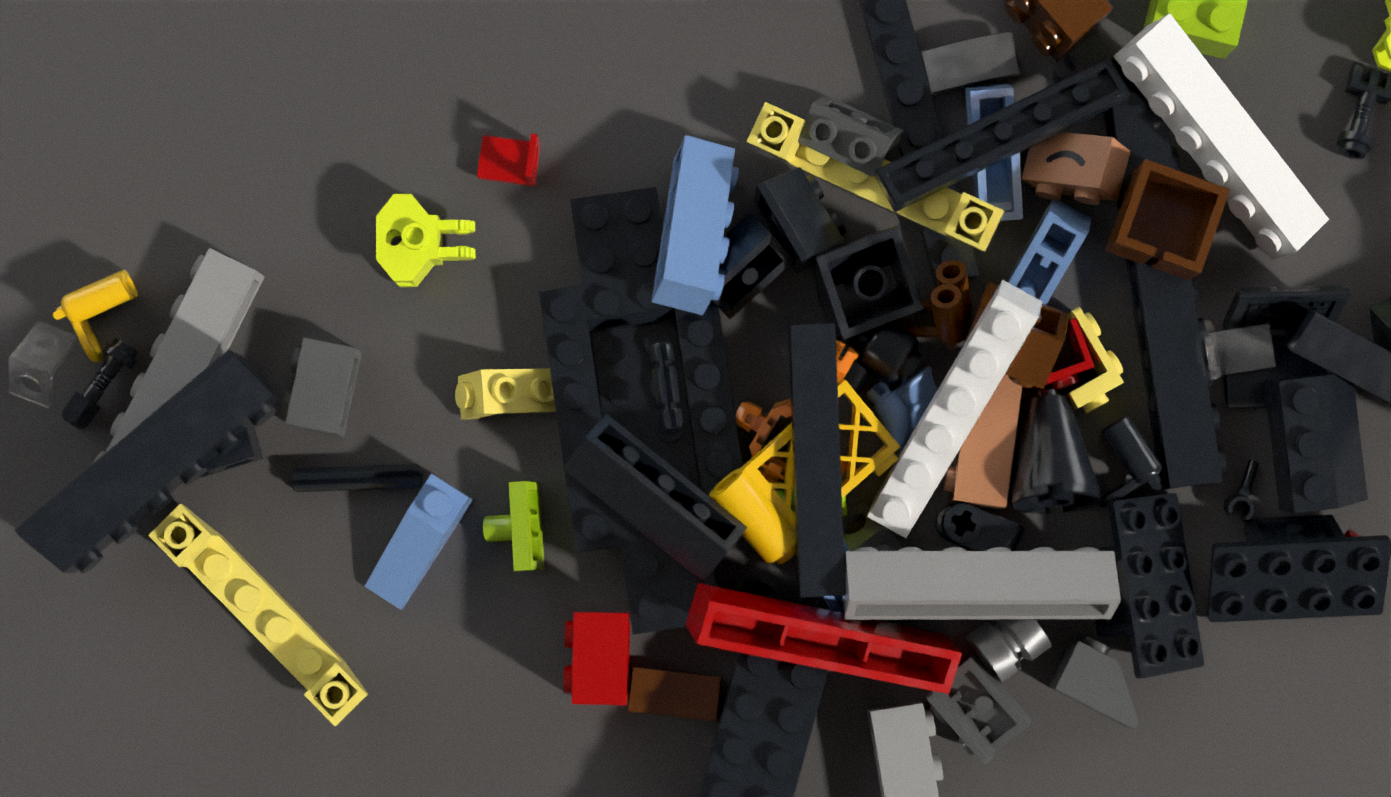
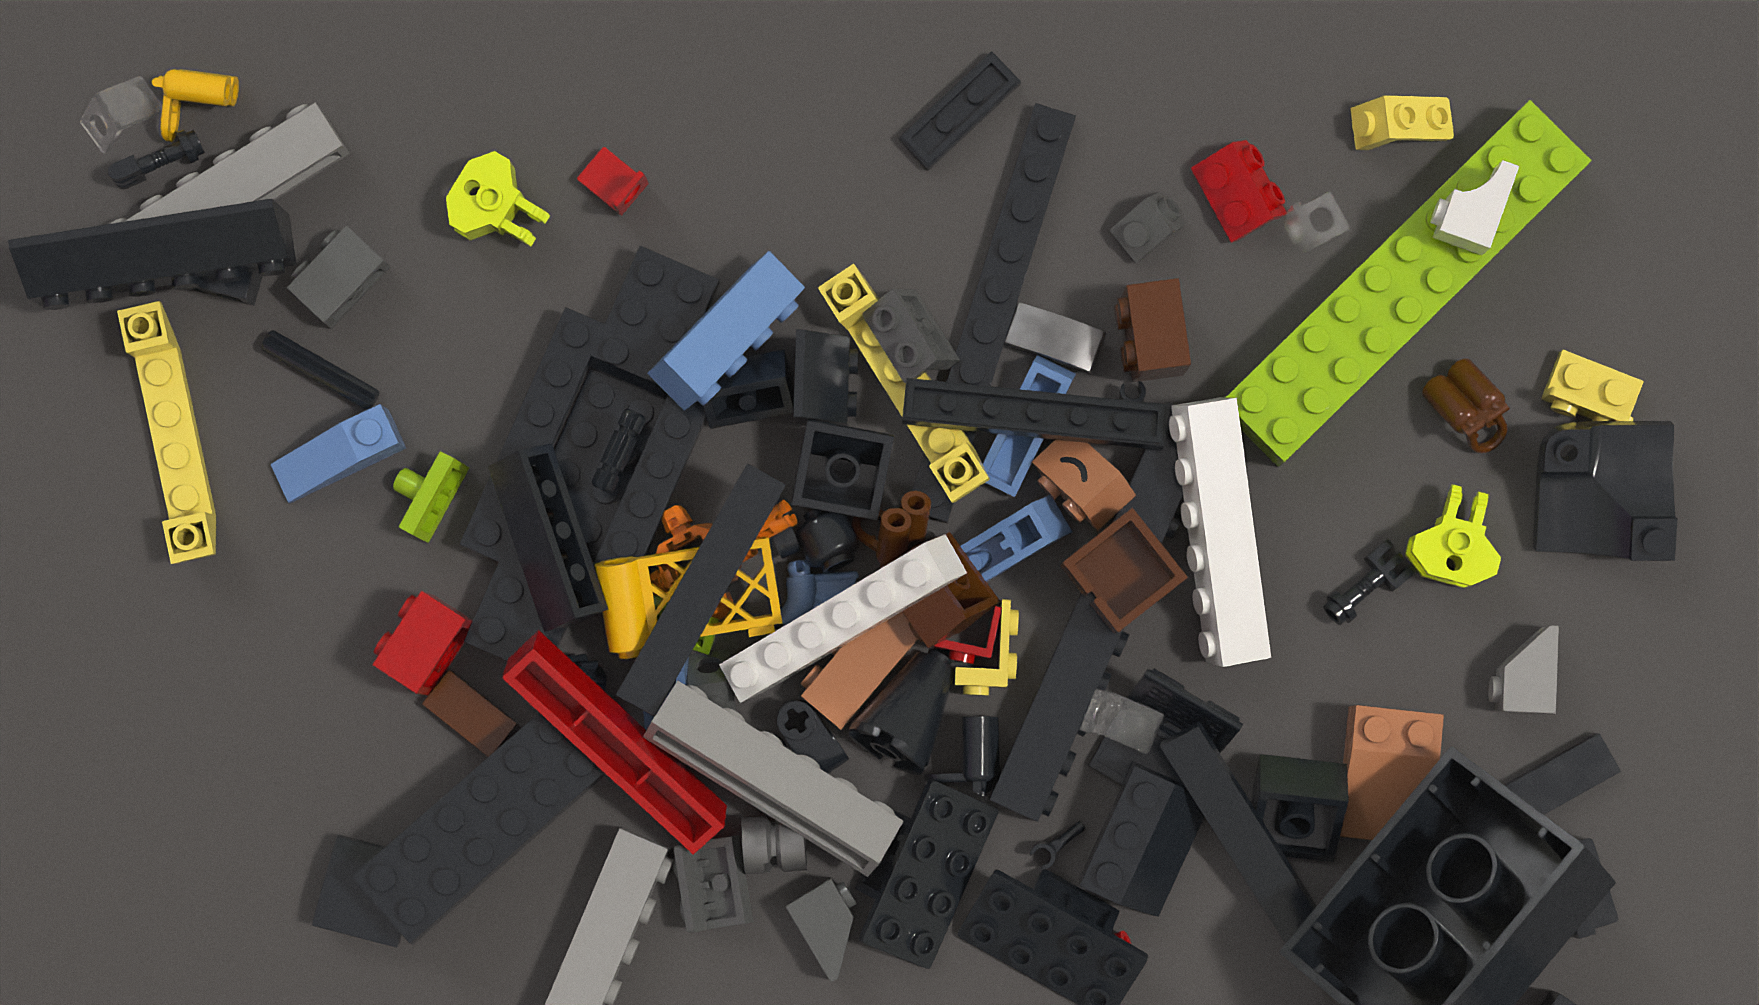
camera: 40 degrees right, 0 degrees up
(504, 392) = (485, 374): light yellow bracket -> none

